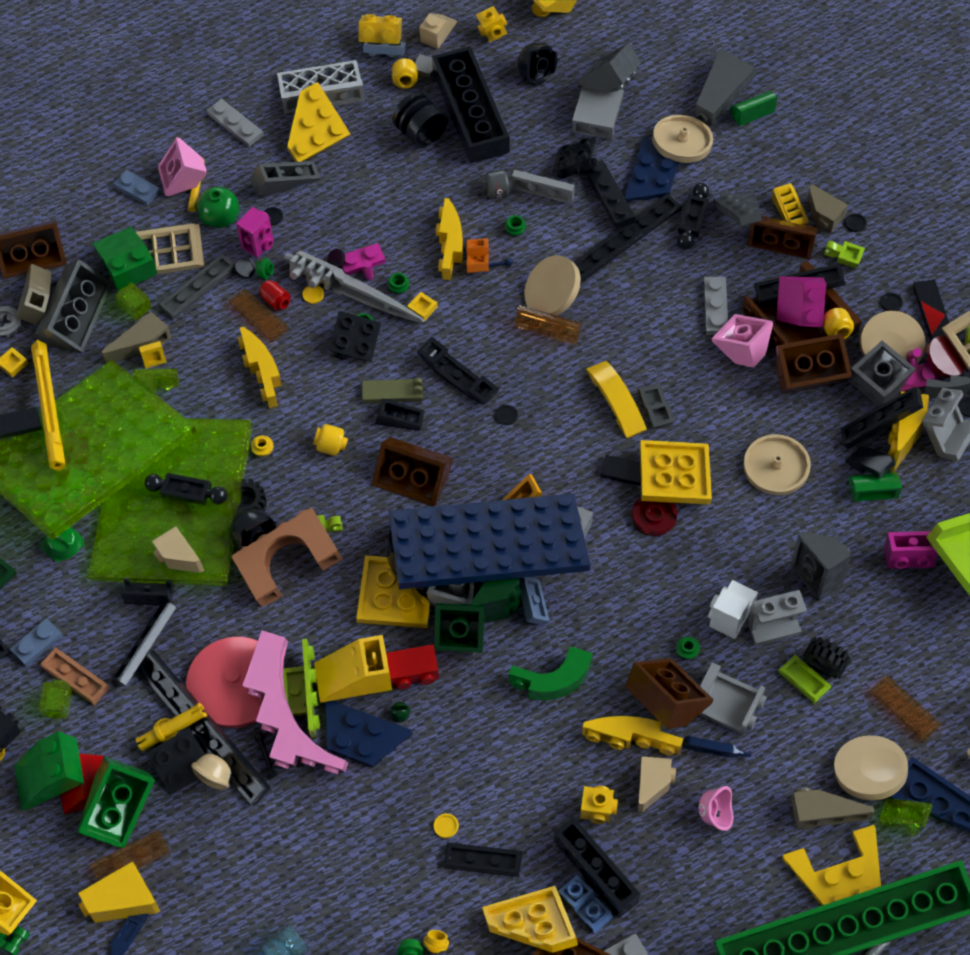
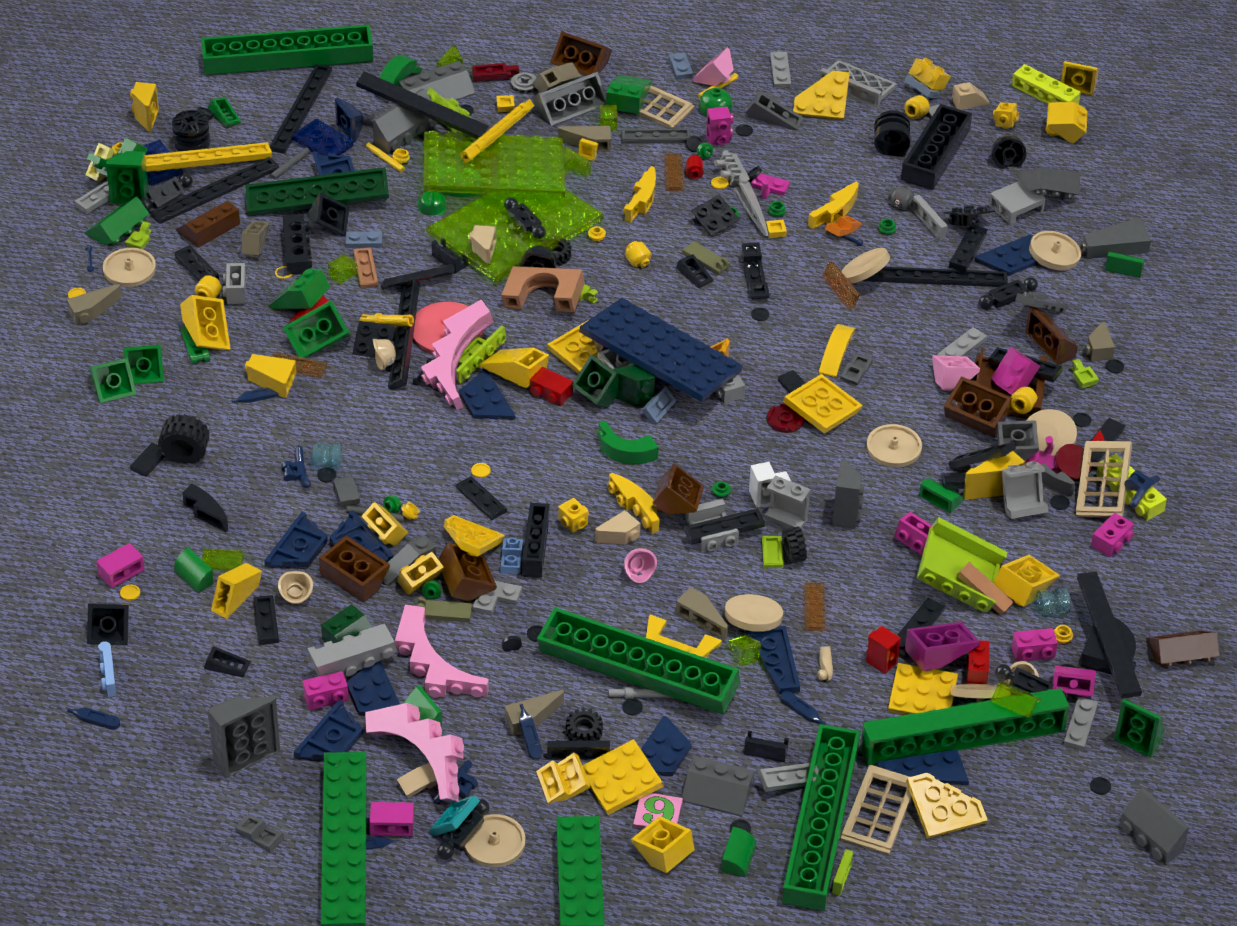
camera: 40 degrees right, 15 degrees down
(399, 715) = (518, 405): dark green hinge -> none
(411, 471) = (667, 298): reddish brown slope -> none
(713, 747) = (676, 543): dark blue piece -> none
(744, 691) = (742, 521): none -> black plate
(786, 194) = (1080, 327): yellow slope -> none

